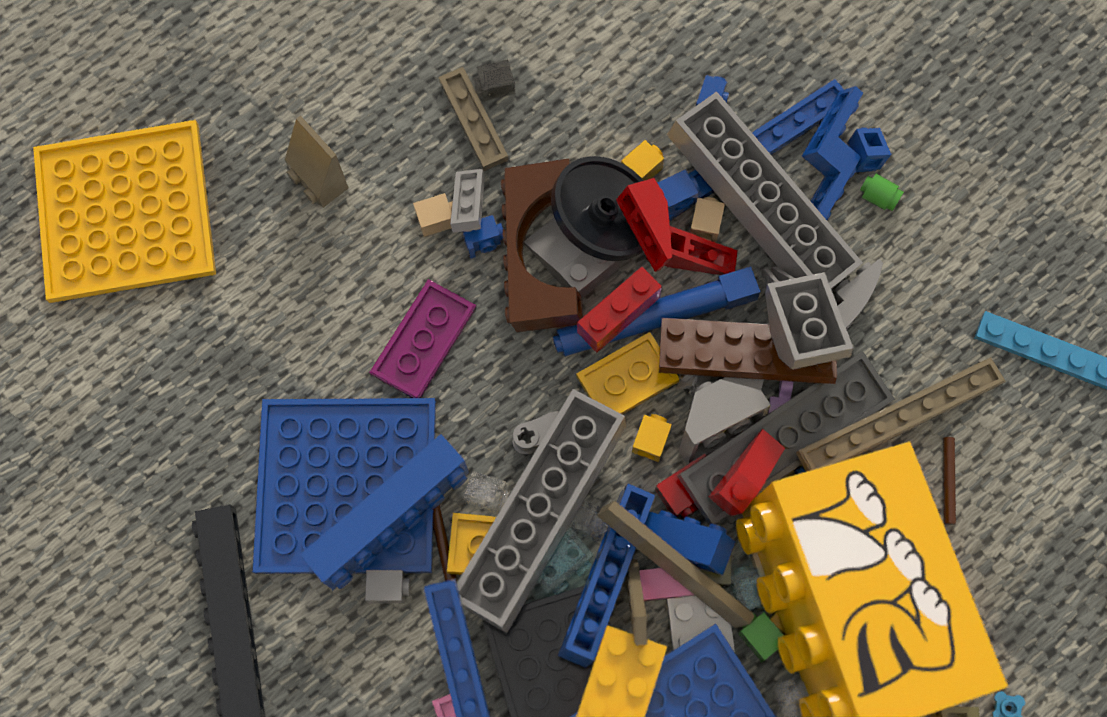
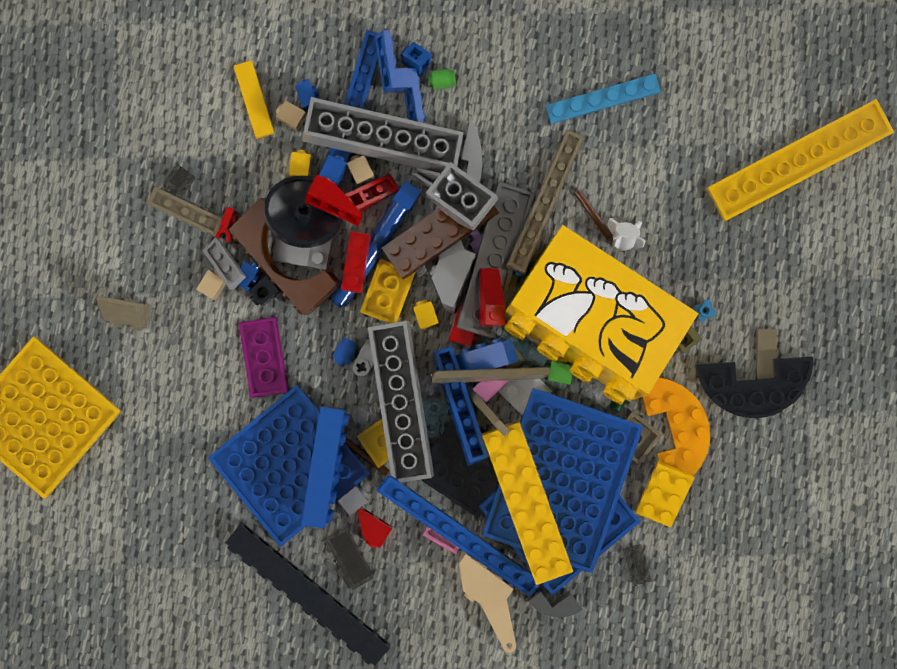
camera: 45 degrees left, 15 degrees up
(320, 653) = (348, 558): none -> clear smoke brick
(379, 641) = (373, 528): none -> red slope
(494, 275) = (272, 292): none -> black brick
(515, 157) = (227, 222): none -> red plate
(521, 406) = (345, 352): none -> blue brick
(647, 61) = (254, 99): none -> yellow tile
(674, 102) = (290, 115): none -> tan brick
(973, 534) = (626, 235): none -> white piece

